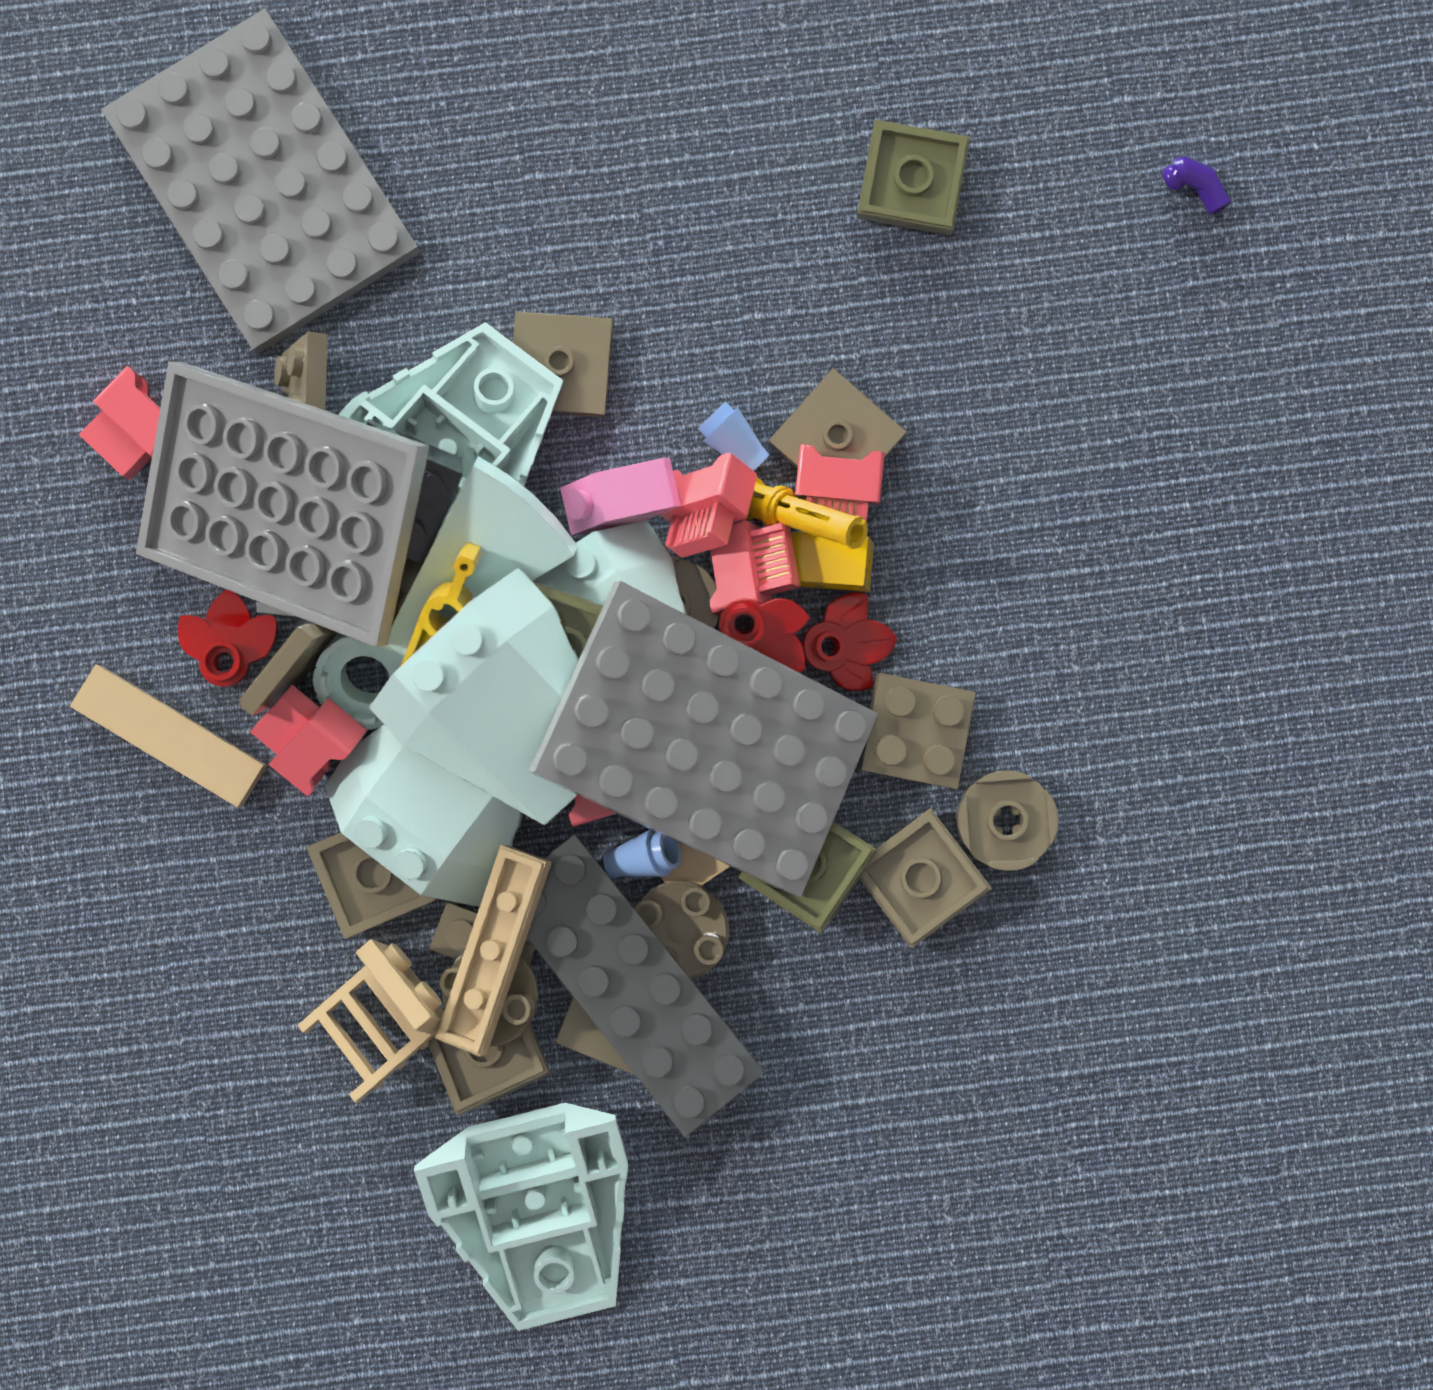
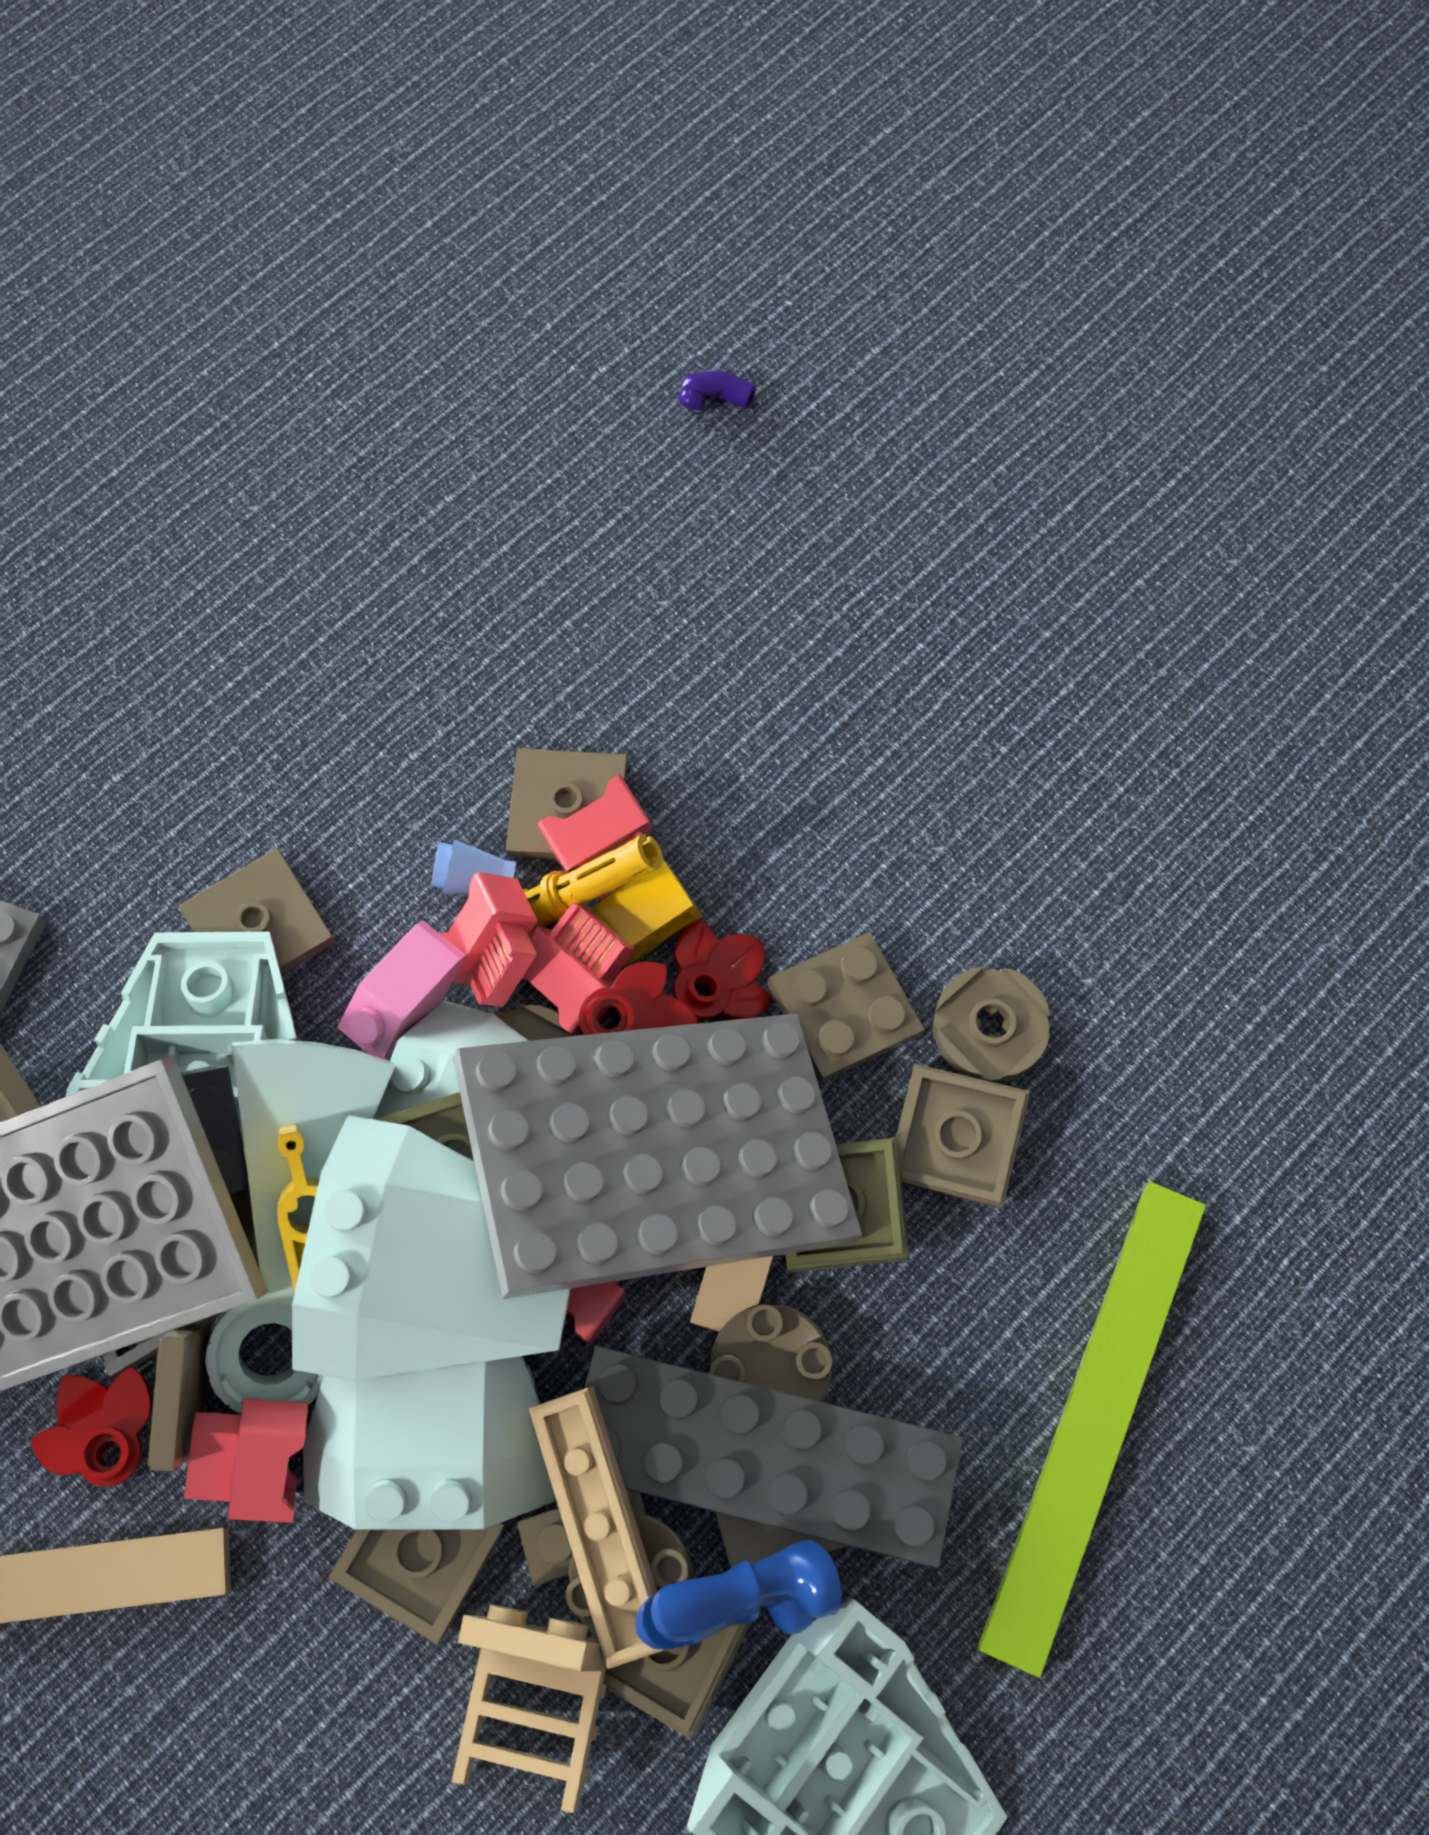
camera: 40 degrees left, 15 degrees down
(588, 1076) = (792, 1584): none -> blue piece
(643, 856) = (681, 1315): light blue cone -> none
(860, 1125) = (1091, 1431): none -> lime tile
(913, 177) = (466, 546): olive plate -> none

